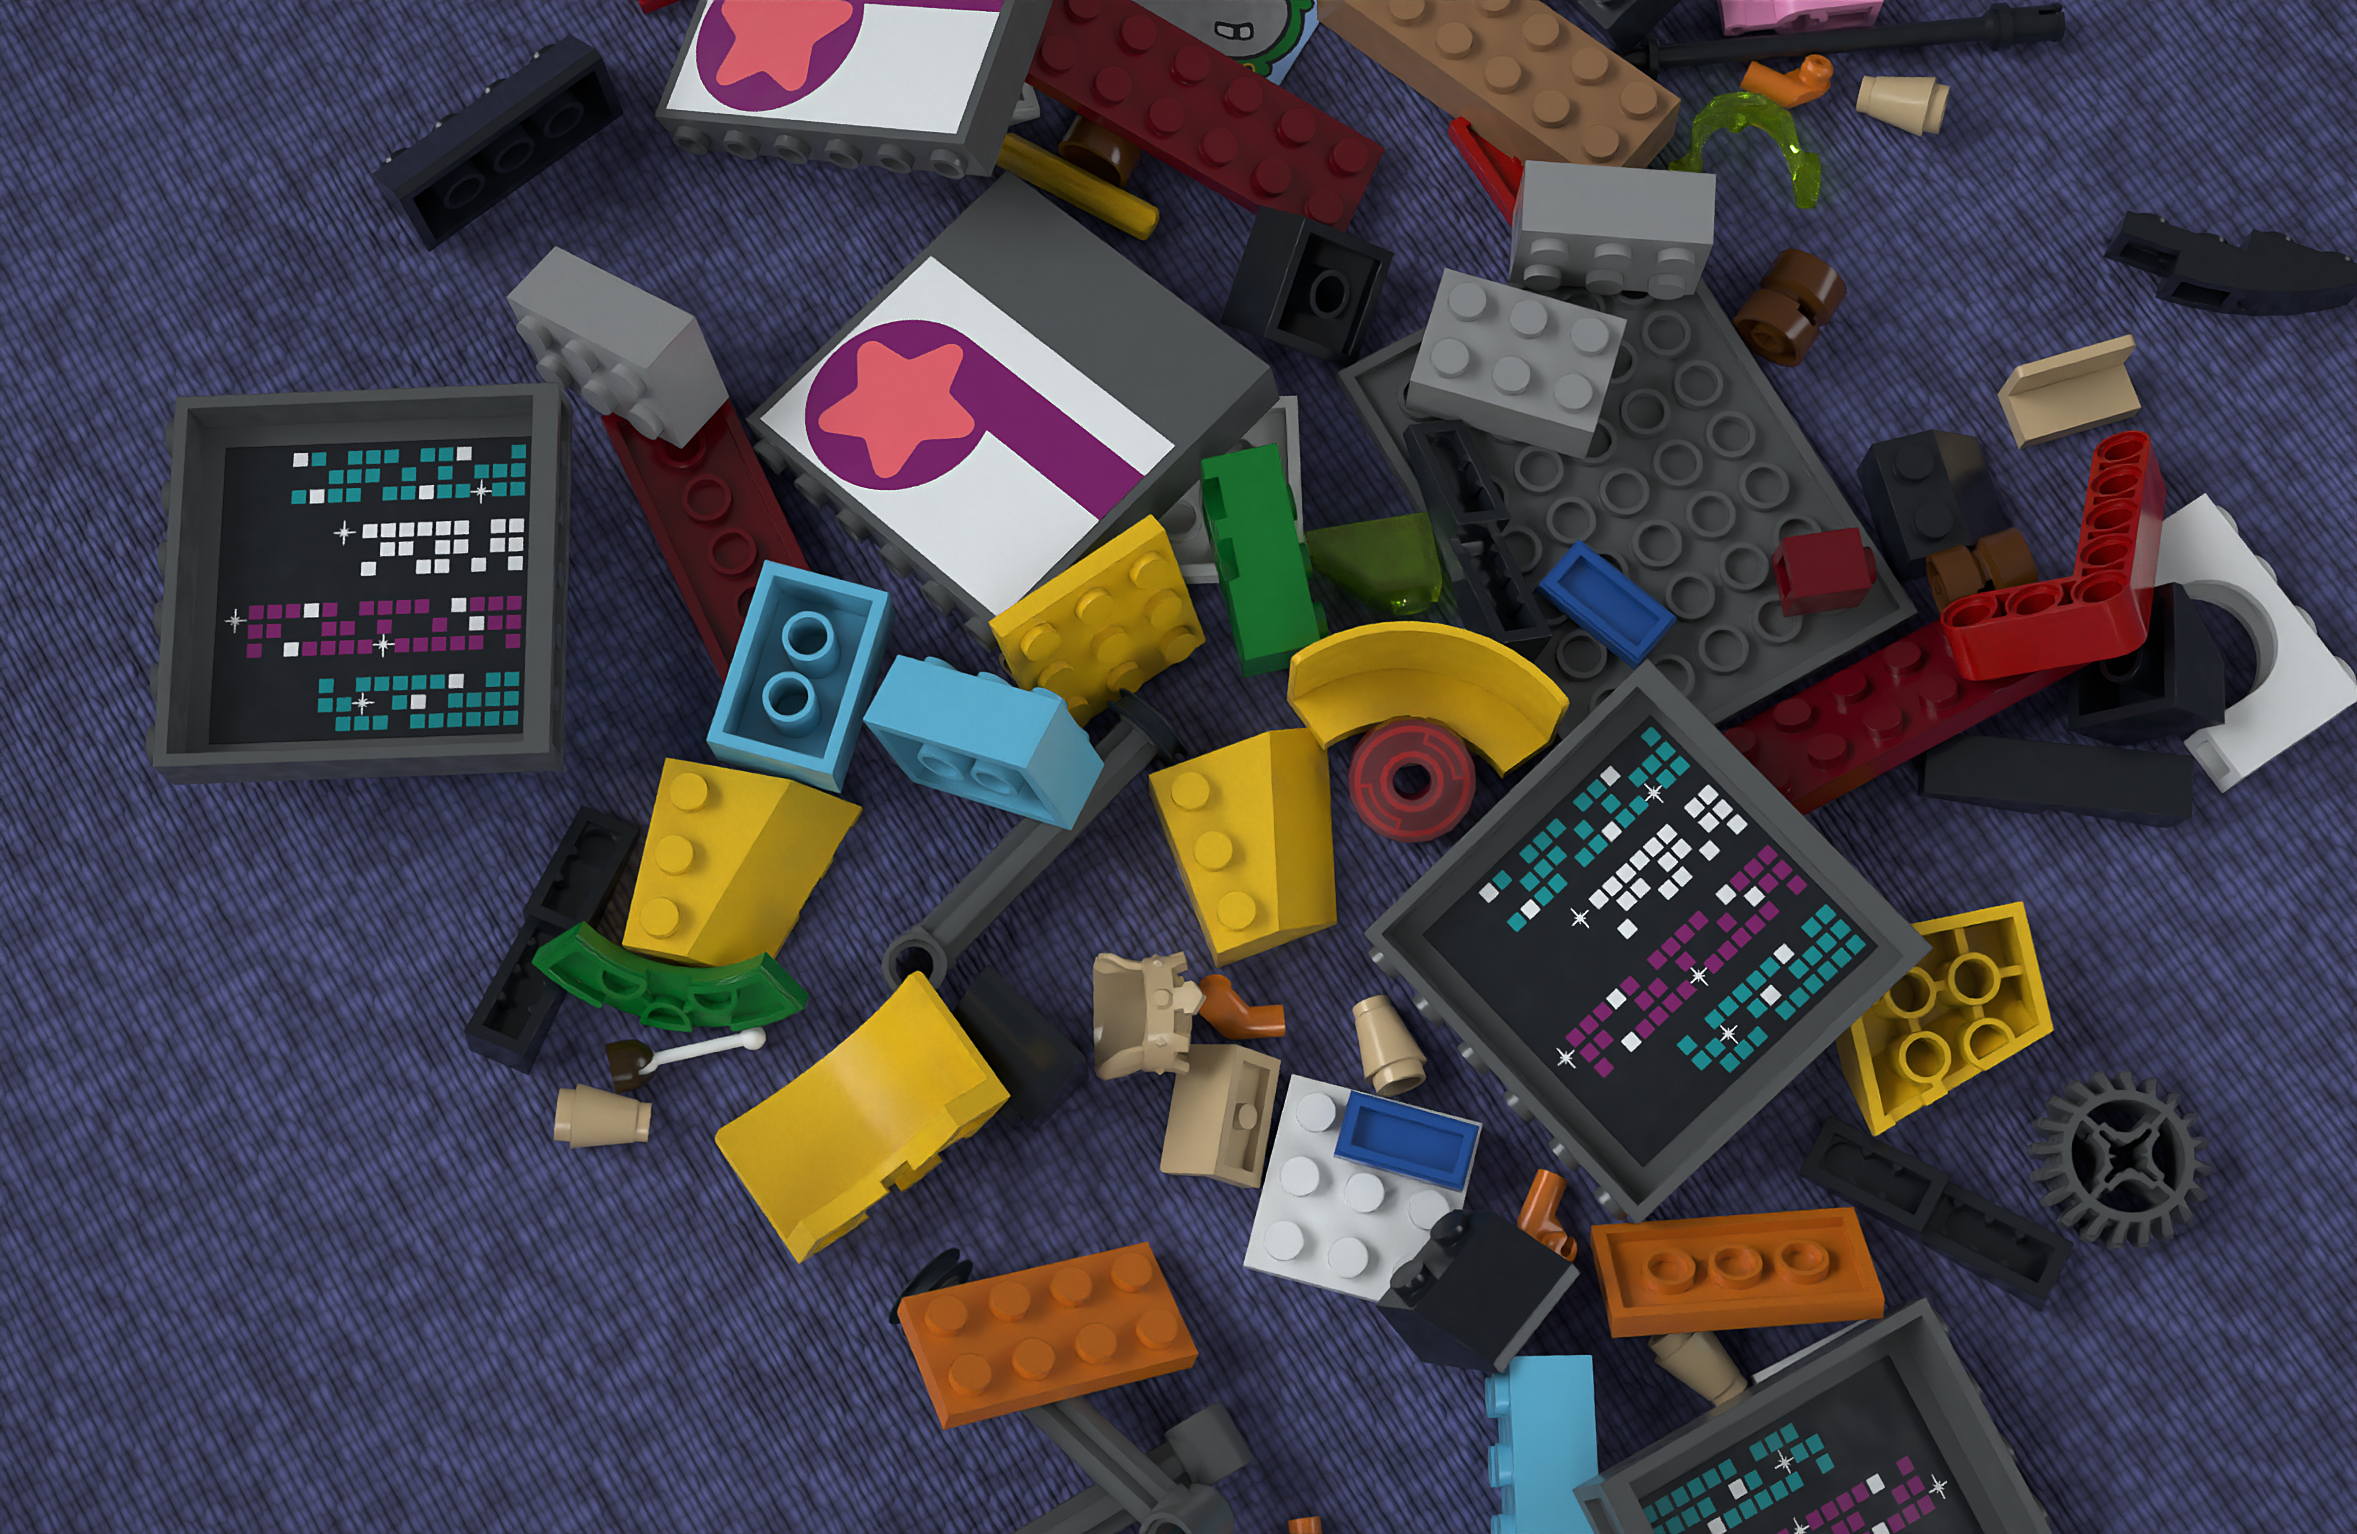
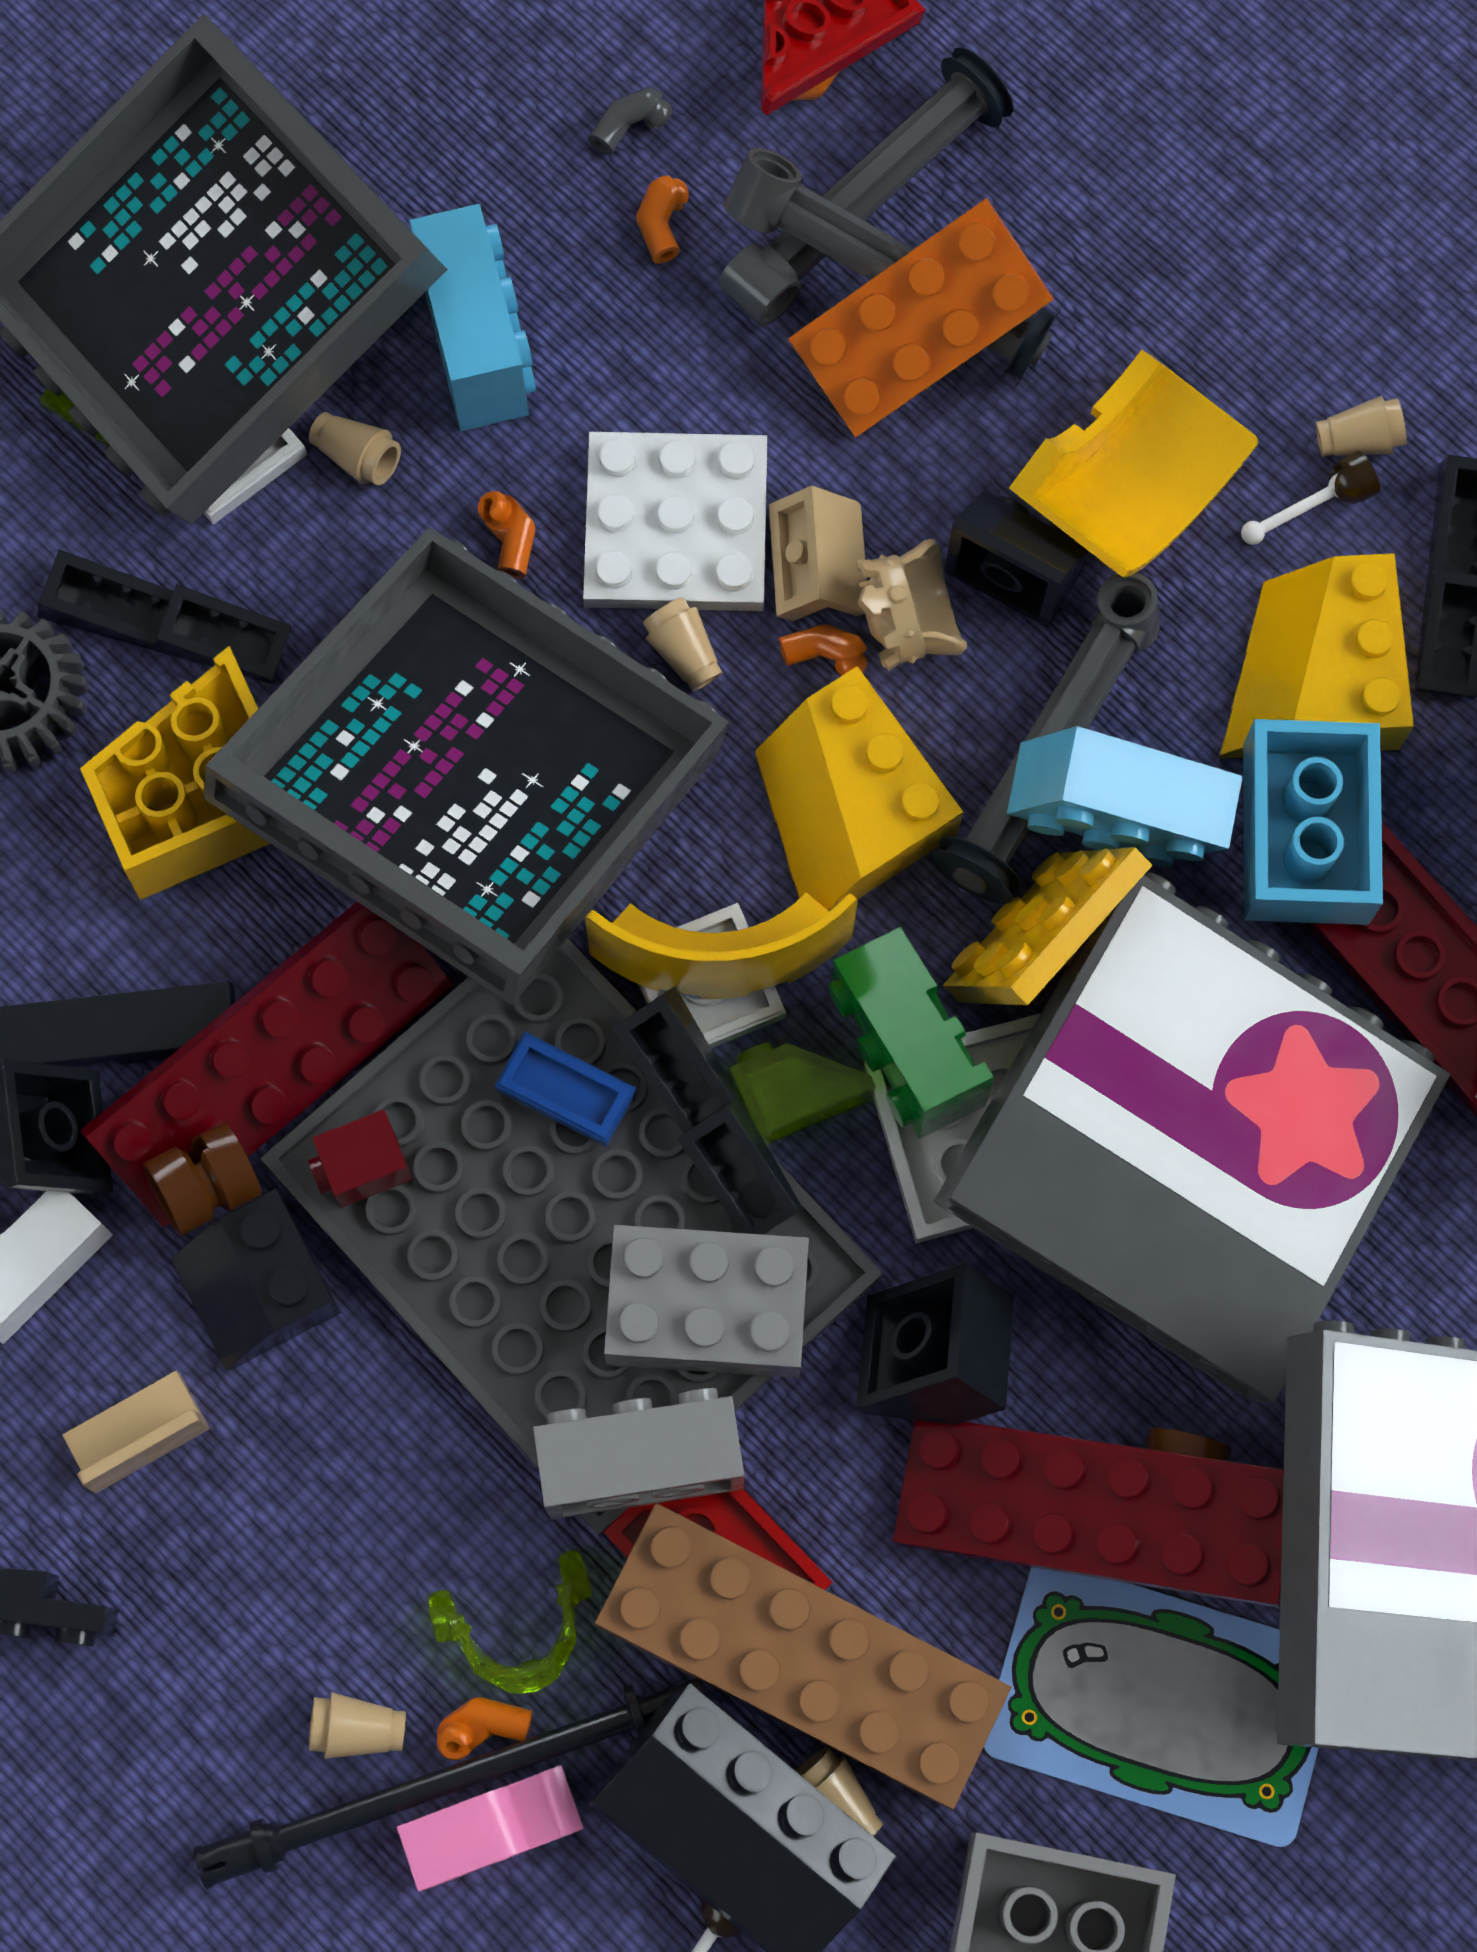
camera: 165 degrees right, 0 degrees up
(670, 995) = (1410, 539): green tile -> none
(1078, 186) = (1155, 1411): yellow axle -> none
(1406, 1141) = (648, 556): blue tile -> none
(1411, 815) = (712, 857): dark red tile -> none
(1474, 1291) = (559, 430): black slope -> none
(1735, 1272) = (334, 511): orange plate -> none
(1793, 302) = (438, 1450): reddish brown wheel -> none
(2098, 609) = (90, 1200): red beam -> none

